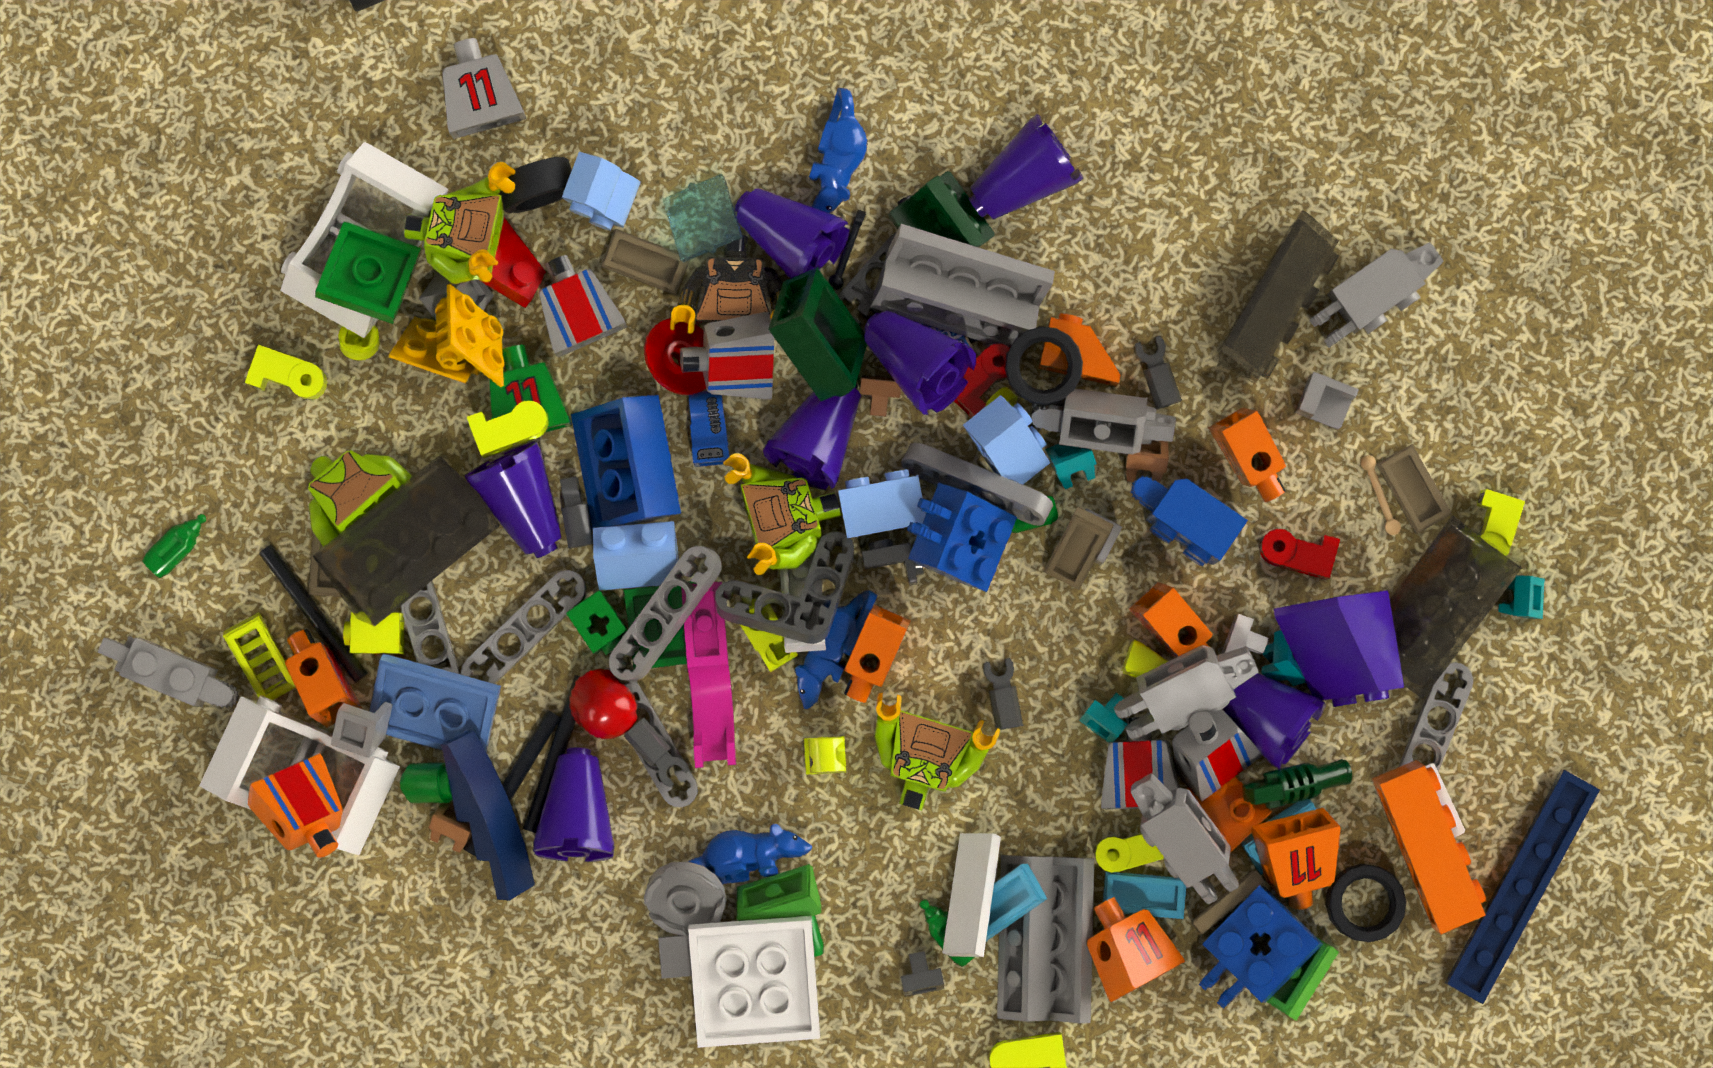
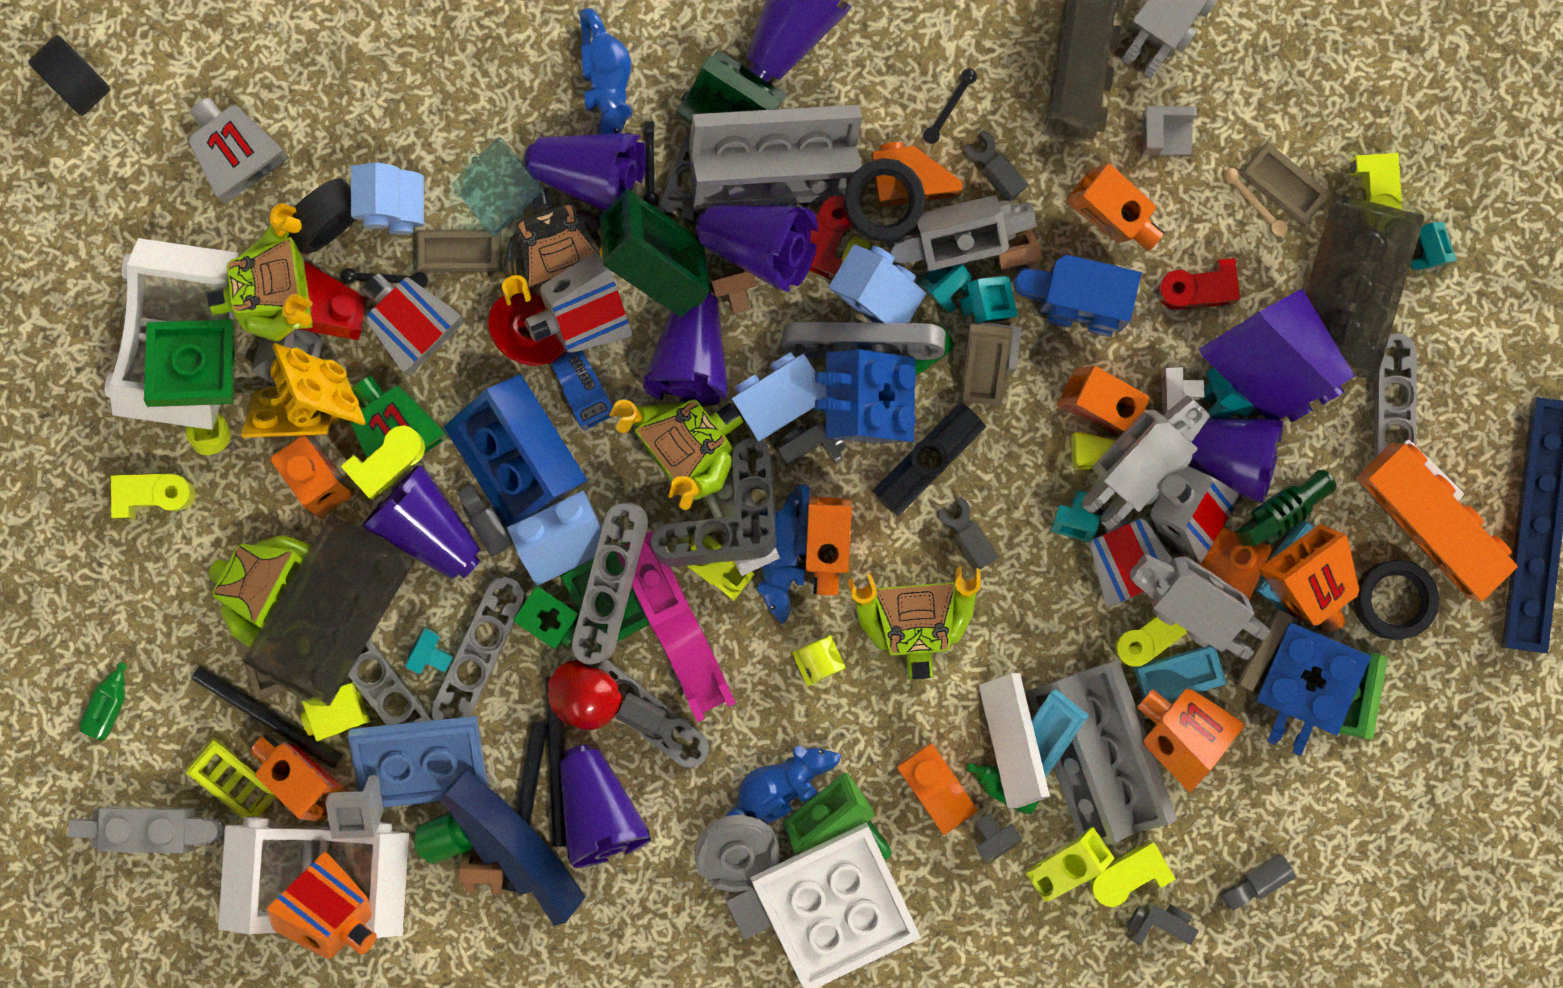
camera: 20 degrees left, 0 degrees up
(437, 414) = (312, 476): none -> orange torso
(477, 611) = (425, 653): none -> teal tile
(539, 246) = (349, 276): none -> black hinge
(886, 911) = (936, 788): none -> orange slope
(979, 1026) = (1070, 865): none -> neon yellow leg
(1019, 603) = (909, 478): none -> black piece
(1105, 491) = (990, 300): none -> teal tile
(1112, 321) = (931, 134): none -> black hinge

